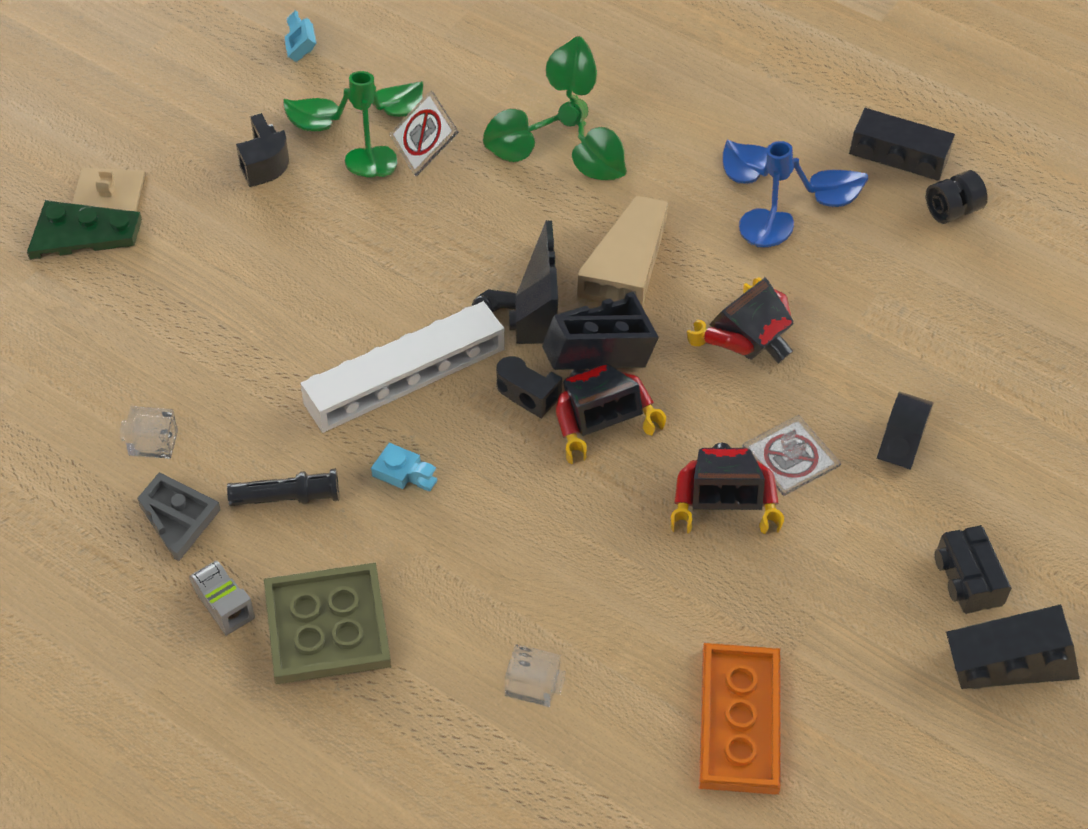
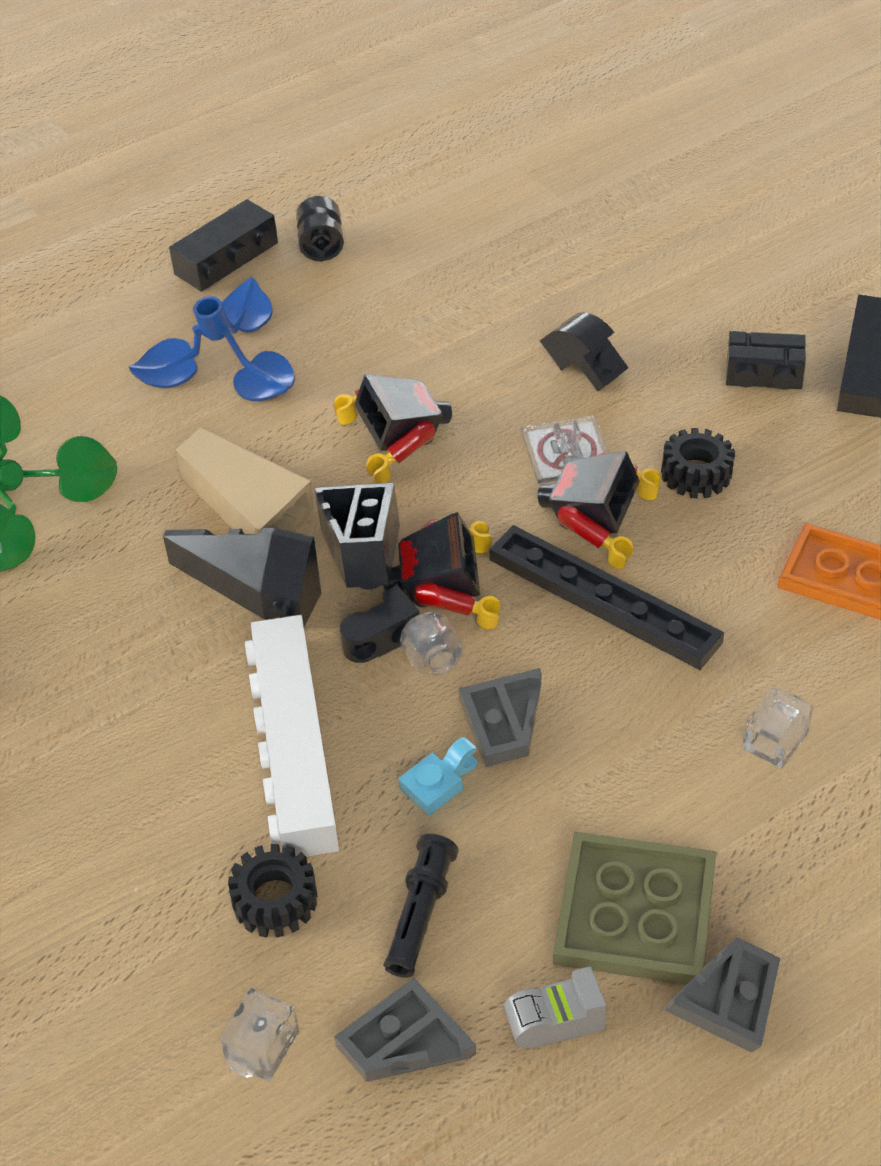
camera: 65 degrees left, 5 degrees down
(266, 699) = (731, 994): none -> dark grey wing
(267, 386) = (279, 912): none -> black tyre
(474, 489) = (503, 715): none -> dark grey wing
(496, 299) = (233, 625): black arm -> none
(520, 420) = (431, 643): none -> clear head
(624, 525) = (607, 597): none -> black plate
(820, 533) = (692, 476): none -> black tyre

